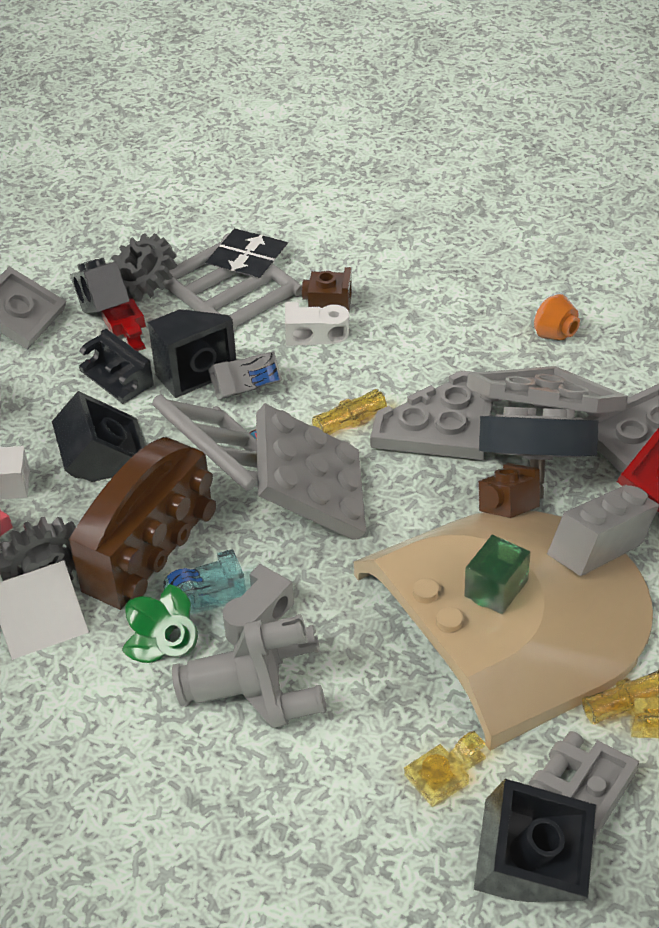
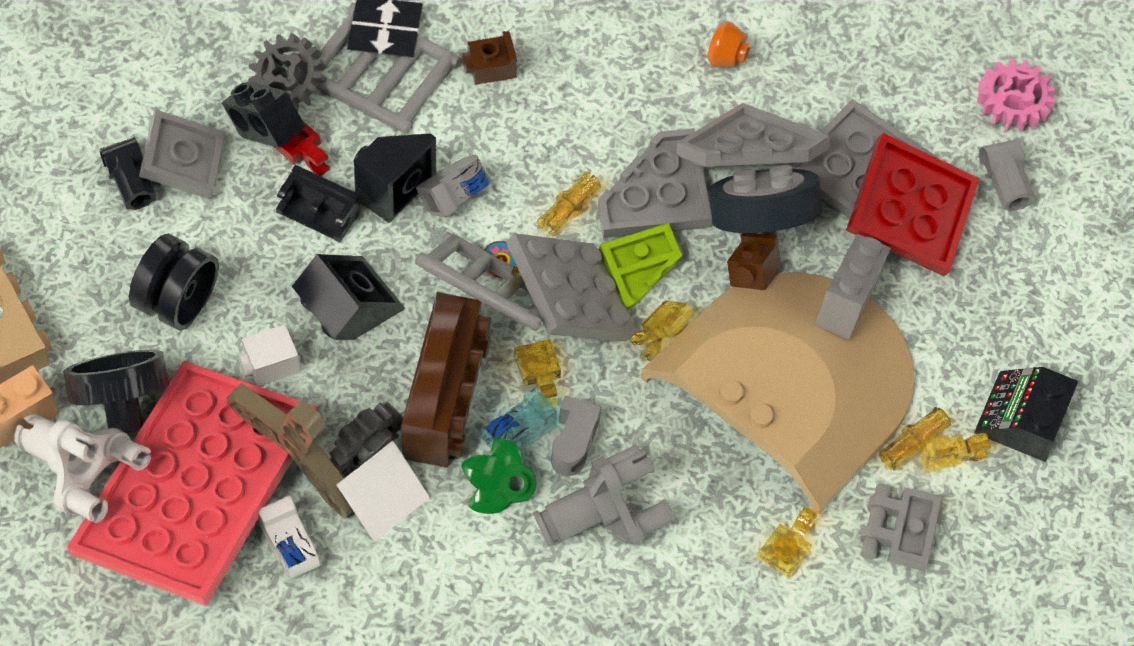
camera: 25 degrees left, 15 degrees up
(250, 538) = (539, 367): none -> clear yellow plate
(315, 324) = (494, 105): white leg -> none
(396, 472) = (640, 261): none -> lime wing
(396, 528) = (662, 323): none -> clear yellow plate
(497, 574) = (789, 365): clear green brick -> none
(535, 845) = (887, 592): black slope -> none

